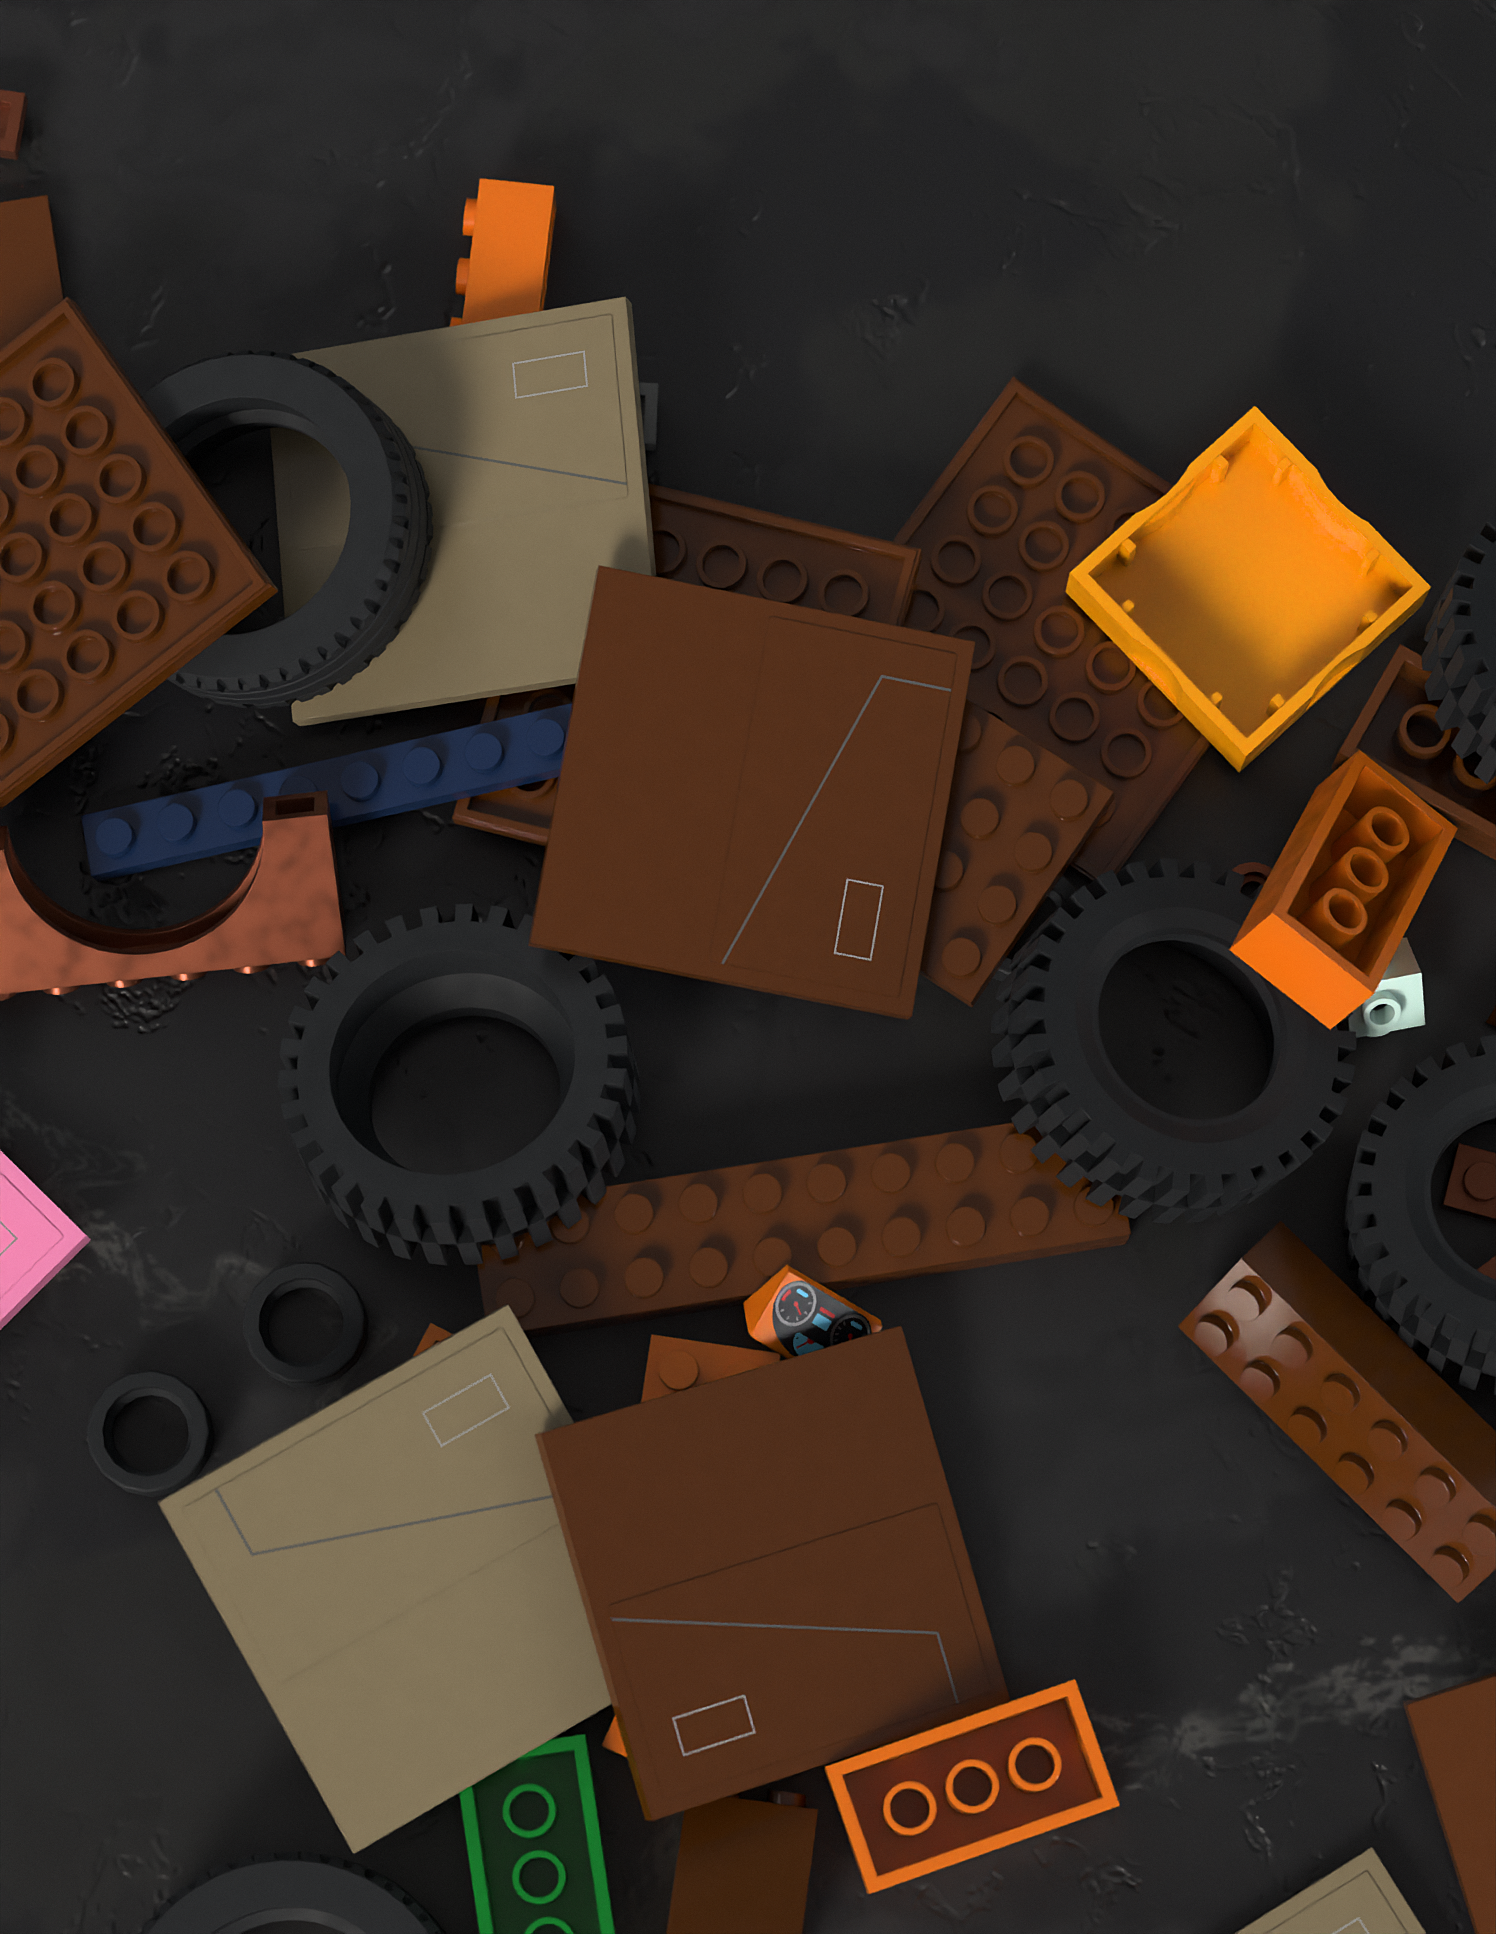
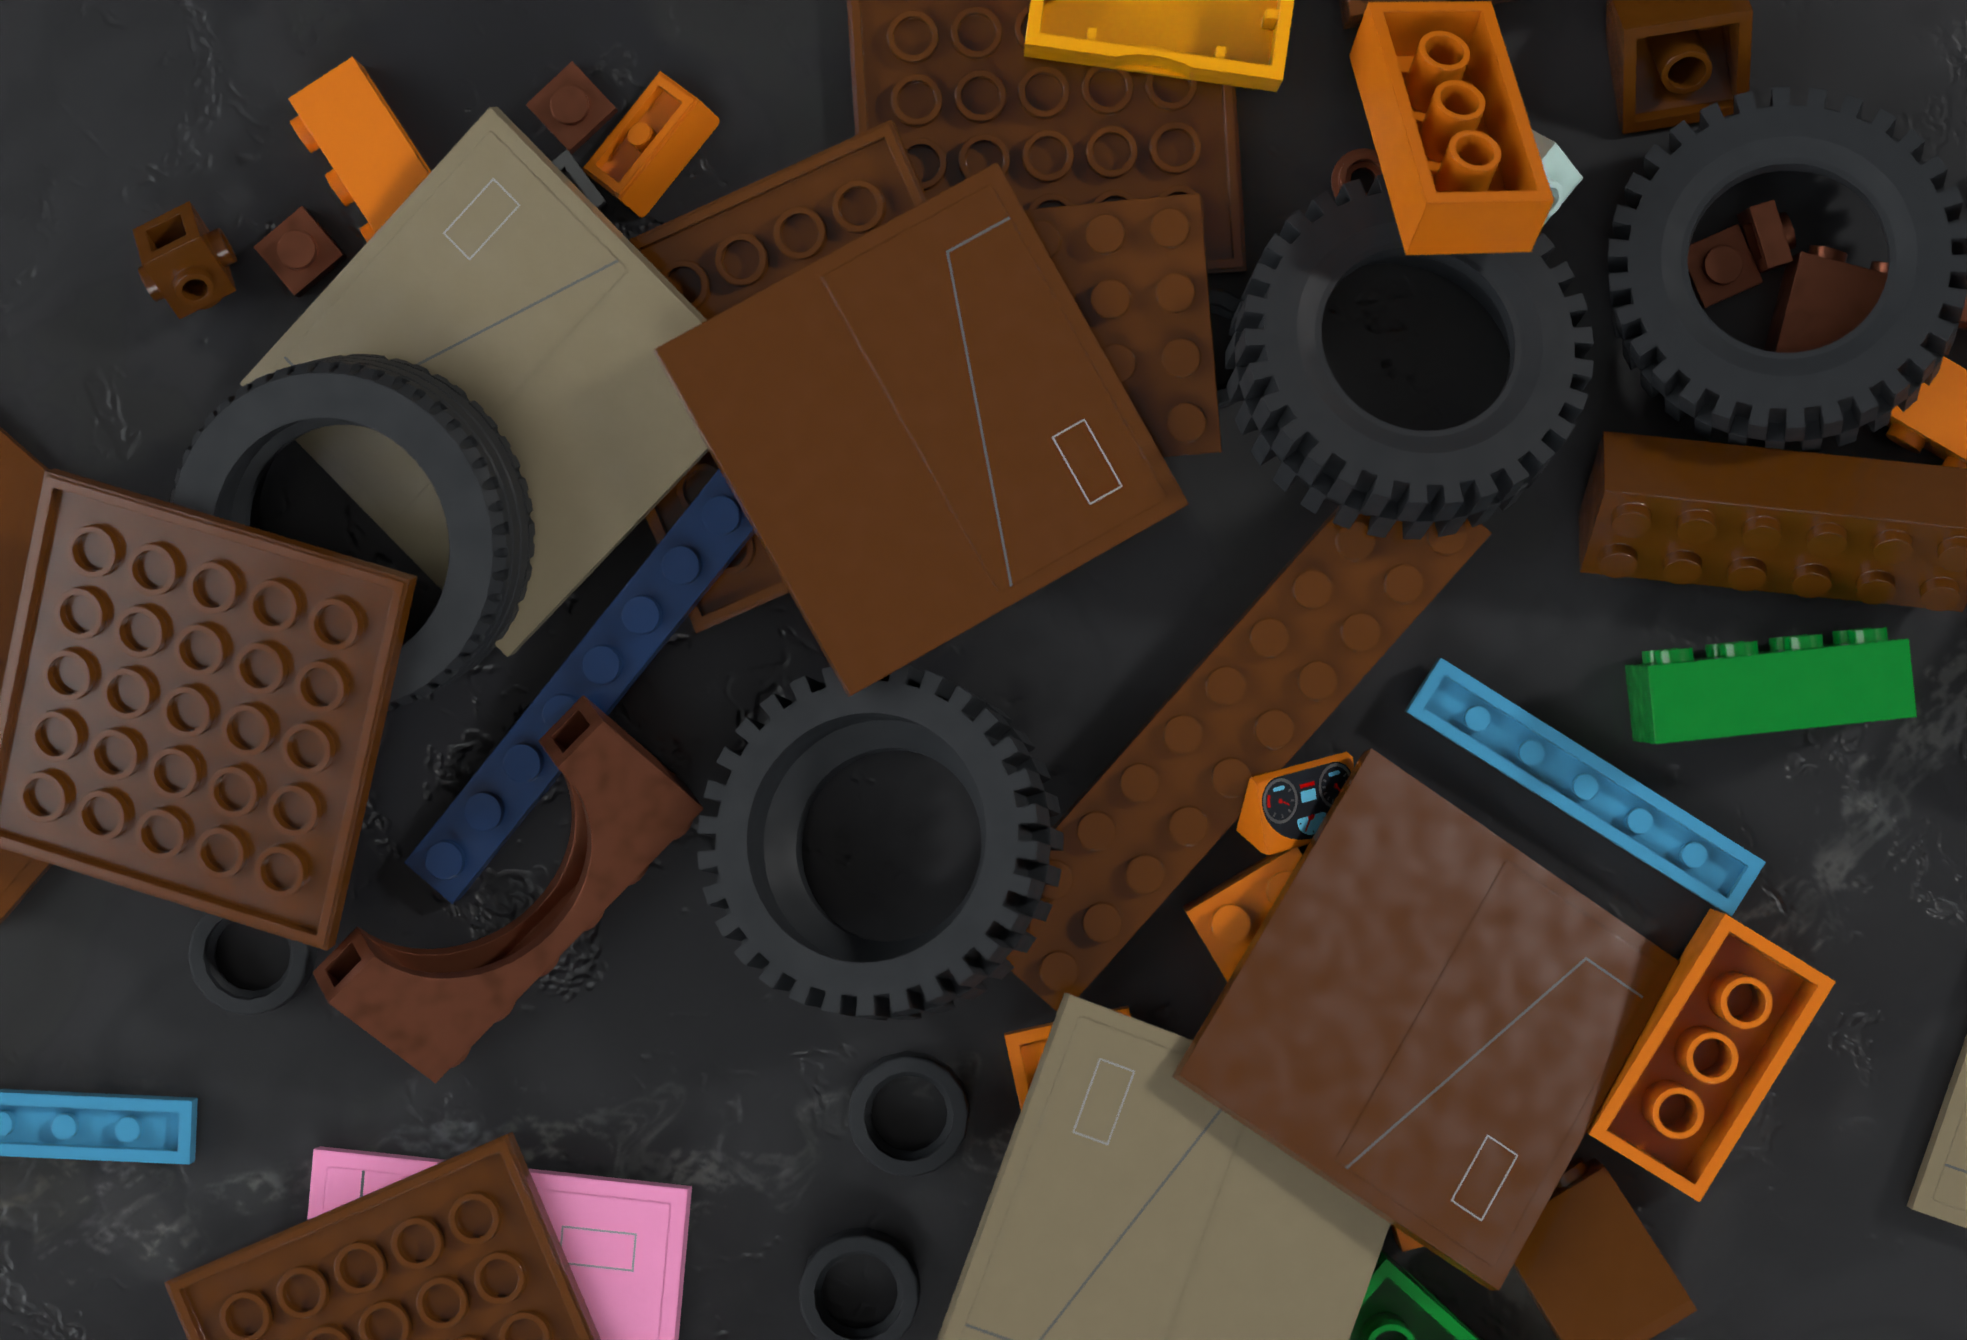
camera: 40 degrees left, 10 degrees up
(301, 236) = (184, 260): none -> reddish brown brick
(392, 301) = (300, 252): none -> copper plate
(688, 358) = (572, 107): none -> copper plate
(725, 434) = (651, 144): none -> orange slope
(1047, 1502) = (1585, 786): none -> dark azure plate
(1254, 1535) = (1770, 690): none -> green brick

